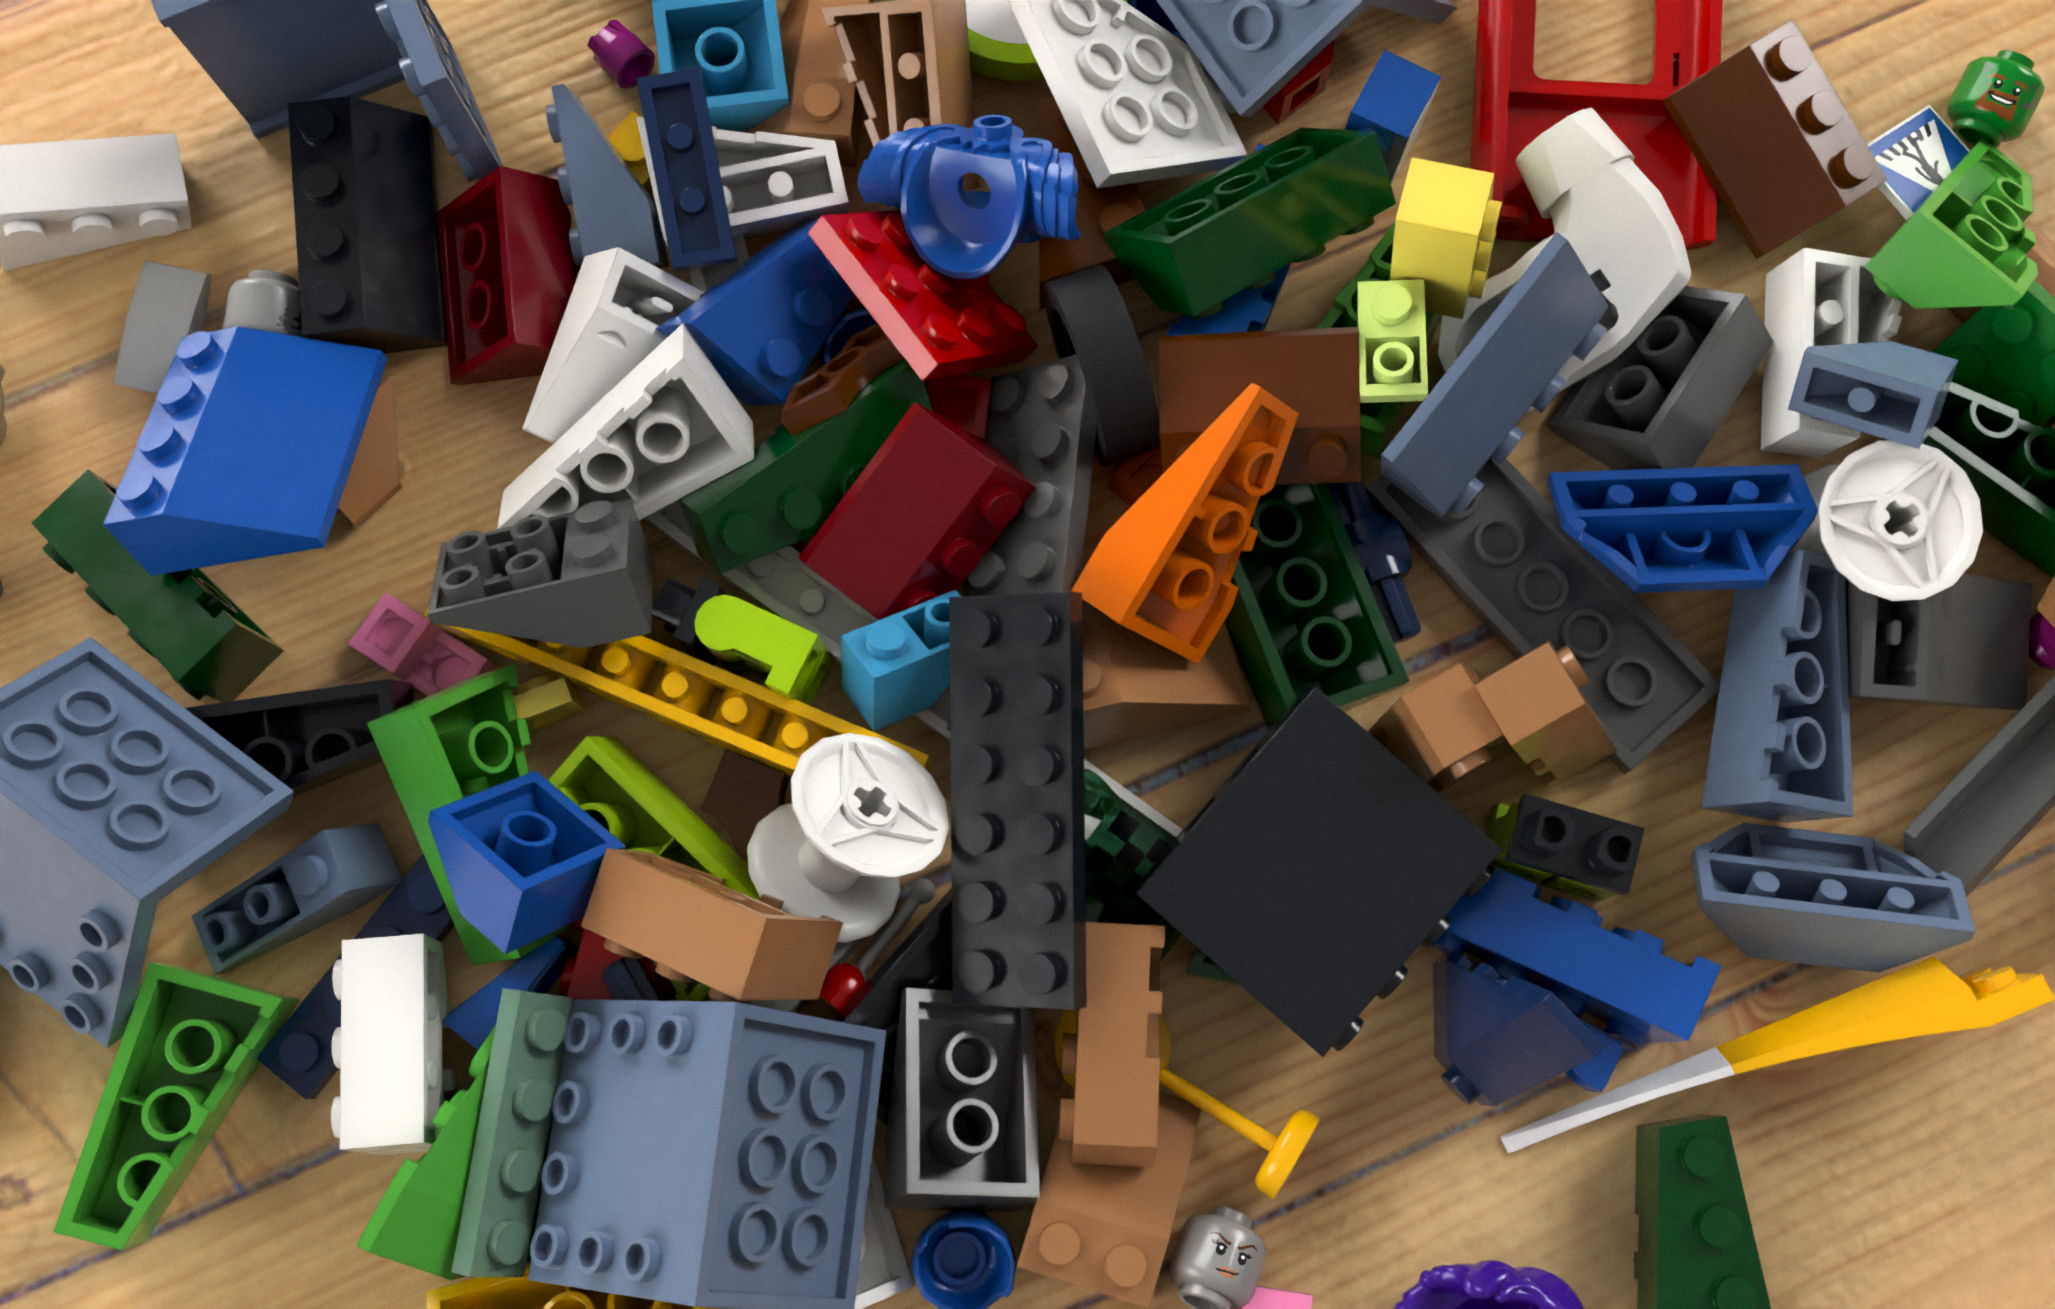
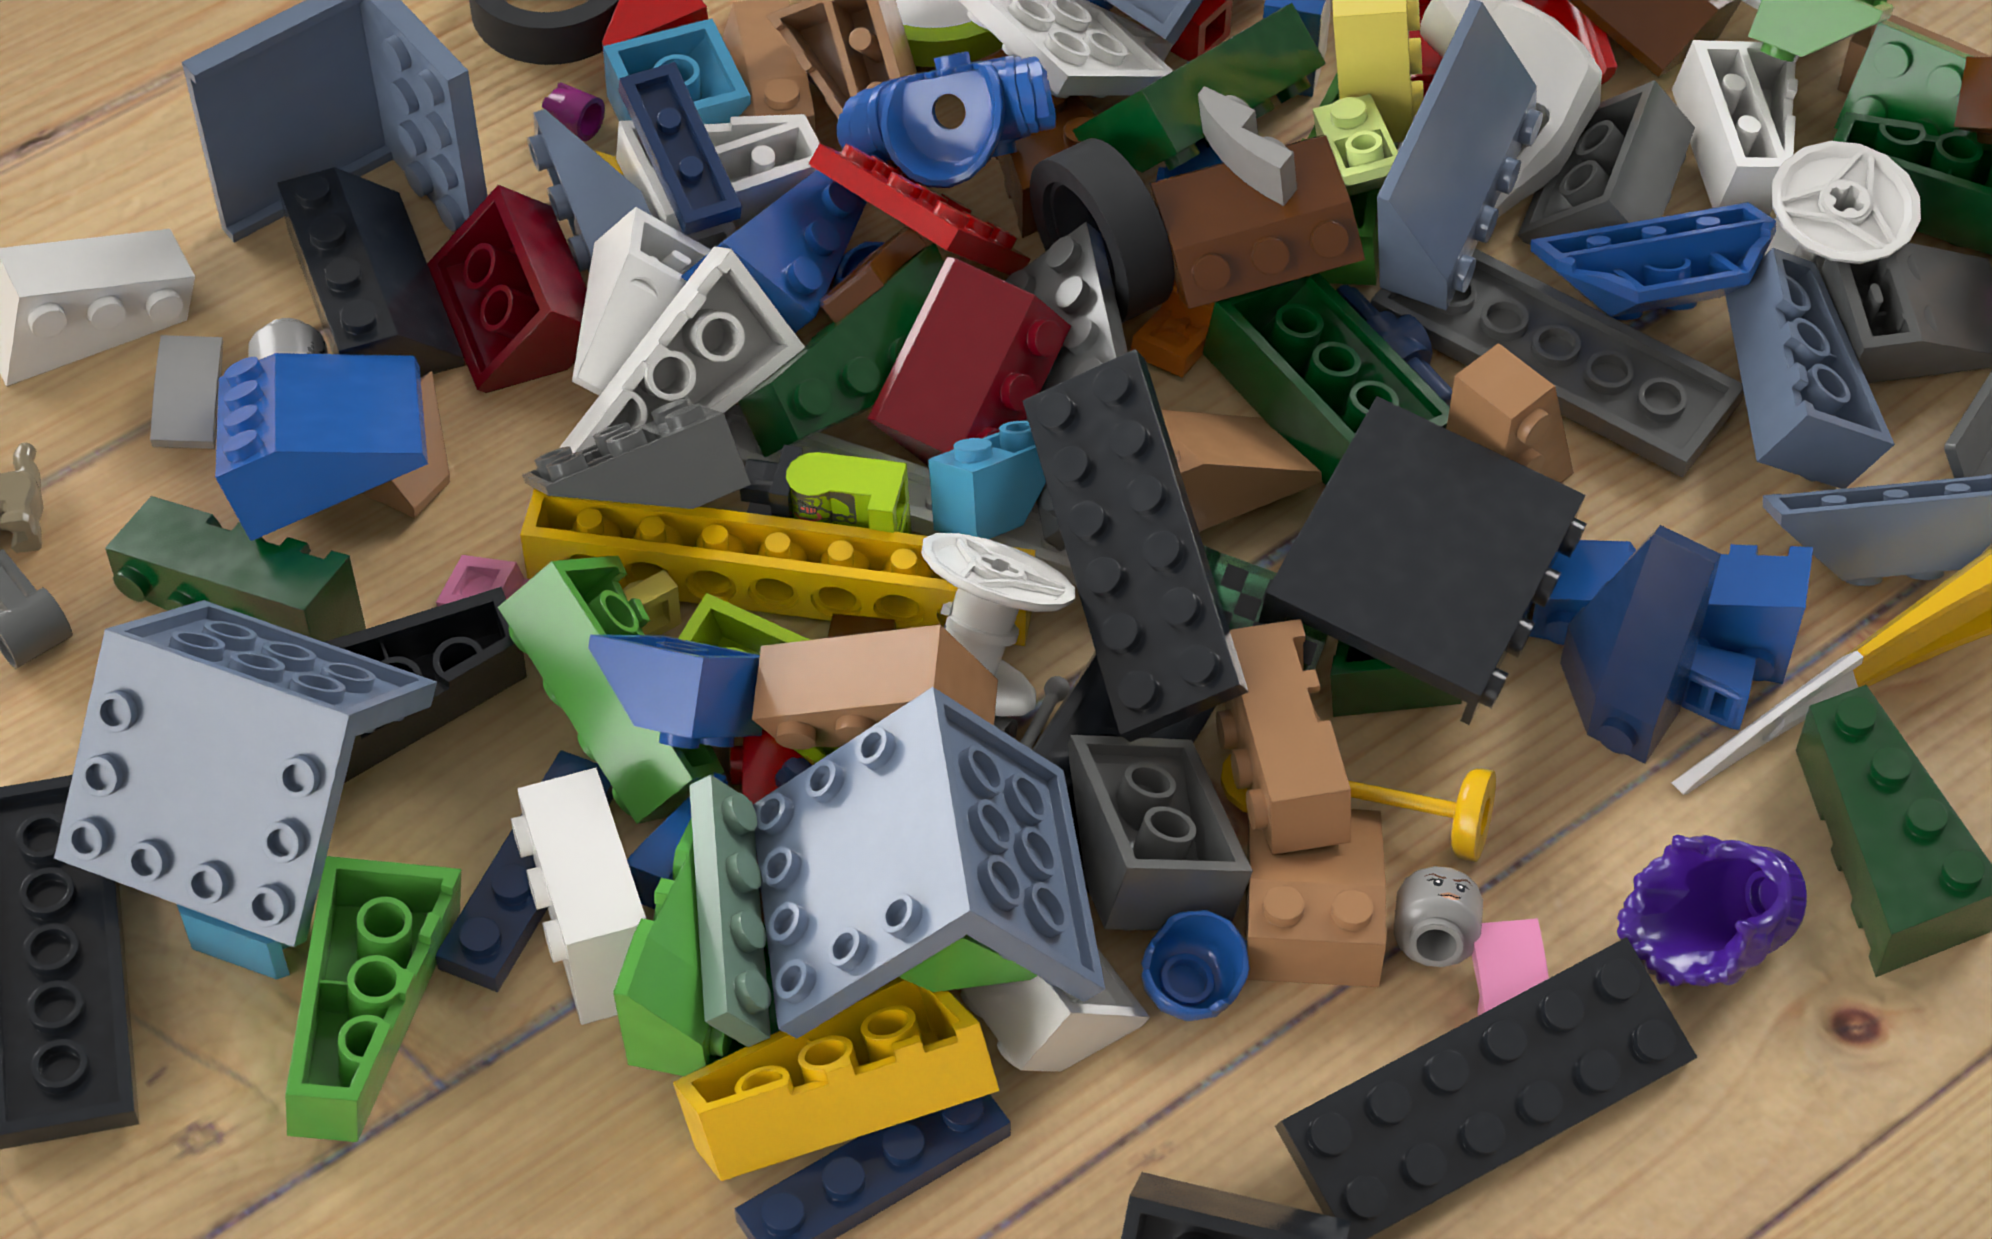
camera: 15 degrees left, 25 degrees down
(297, 894) = (448, 801): sand blue slope -> none
(1177, 547) = (1220, 323): orange wedge -> none
(1259, 321) = (1234, 136): none -> light grey slope
(1546, 713) = (1599, 398): medium nougat wedge -> none
(1565, 847) = (1637, 494): black hips -> none
(1874, 388) = (1786, 112): sand blue slope -> none

